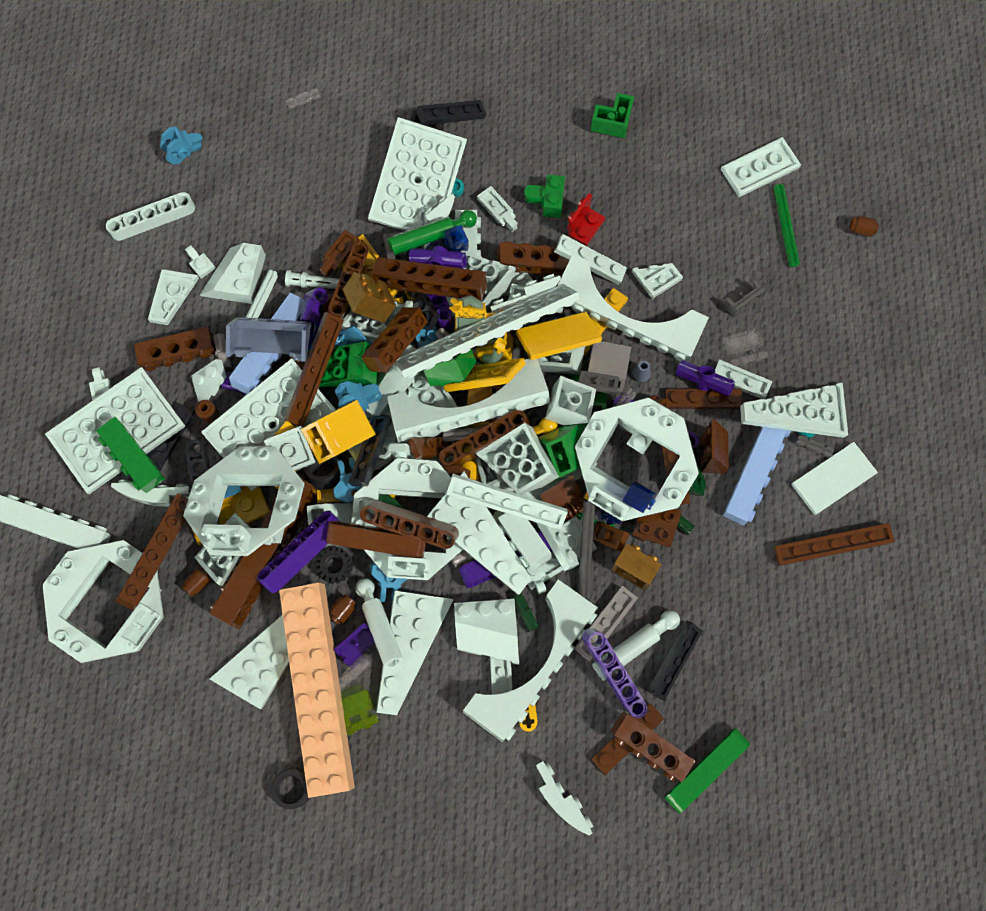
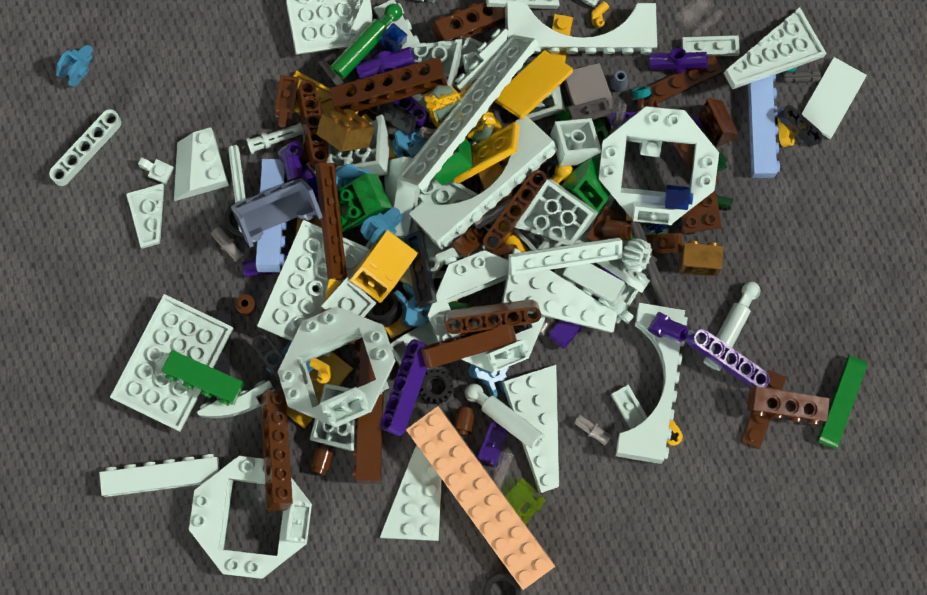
camera: 30 degrees left, 5 degrees up
(100, 384) = (131, 331): light aqua plate -> none
(146, 350) = (171, 262): reddish brown brick -> none
(208, 379) = (230, 277): light aqua wing -> none
(229, 498) = (323, 370): none -> yellow arm
(394, 339) = (389, 158): reddish brown brick -> none
(455, 677) = (593, 430): none -> light grey axle
(487, 629) = (600, 374): light aqua wedge -> none
(525, 612) = (623, 345): dark green axle -> none
(566, 807) = (741, 491): light aqua slope -> none
(569, 613) = (664, 326): none -> dark purple piece
(570, 501) = (616, 229): none -> reddish brown brick
(576, 533) = (636, 255): none -> light aqua gear
(609, 618) = (698, 315): light grey plate -> none
(651, 305) = (597, 14): none -> yellow arm
(657, 390) = (641, 92): none -> teal tile
(675, 660) = (771, 323): black plate -> none
(776, 485) = (786, 136): none -> yellow beam
(785, 476) = (809, 134): none -> black beam
(834, 544) = (858, 157): reddish brown plate -> none

